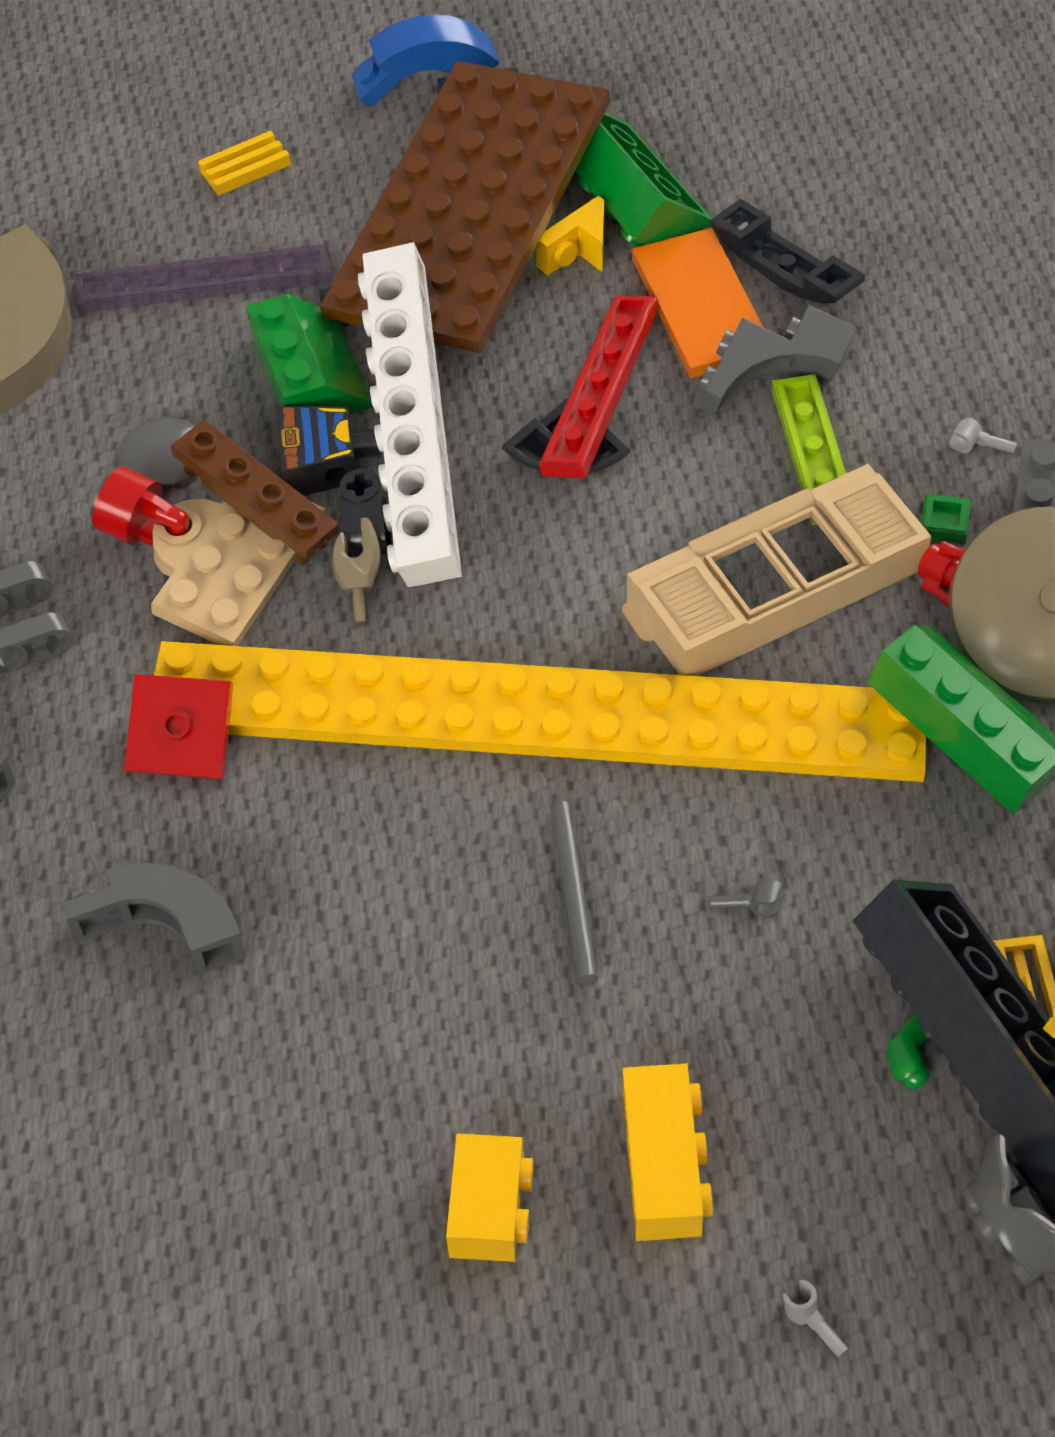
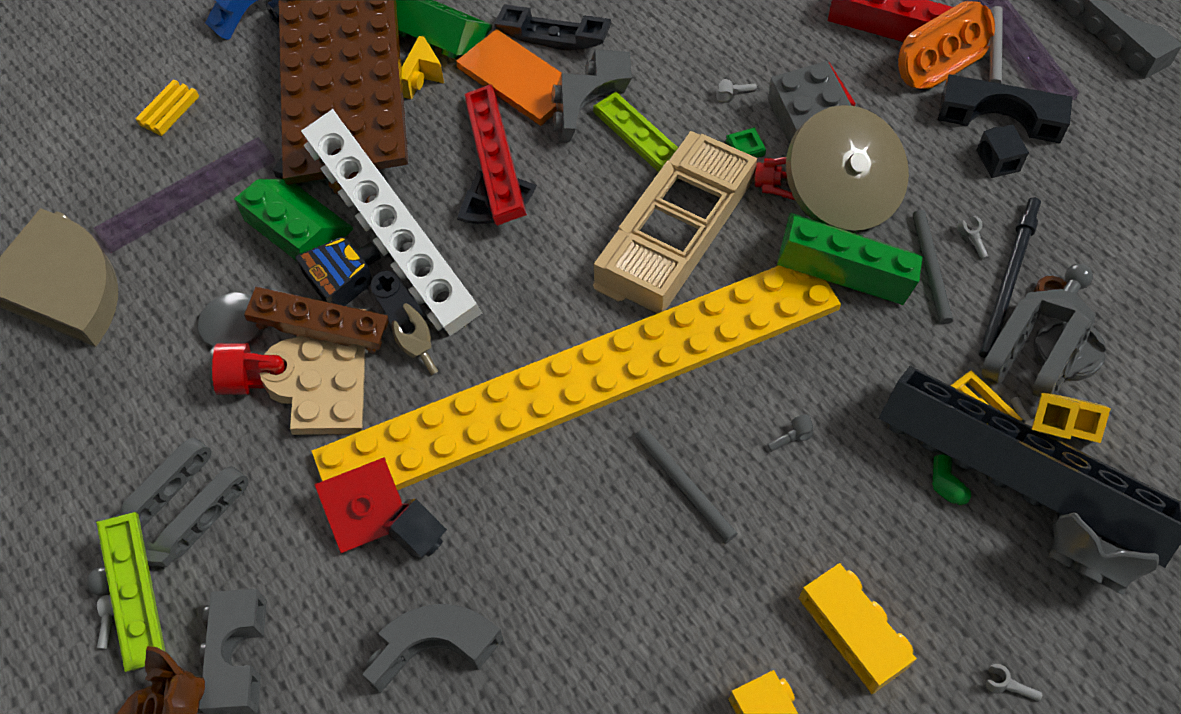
camera: 30 degrees left, 5 degrees up
(219, 781) = (415, 529): none -> black brick

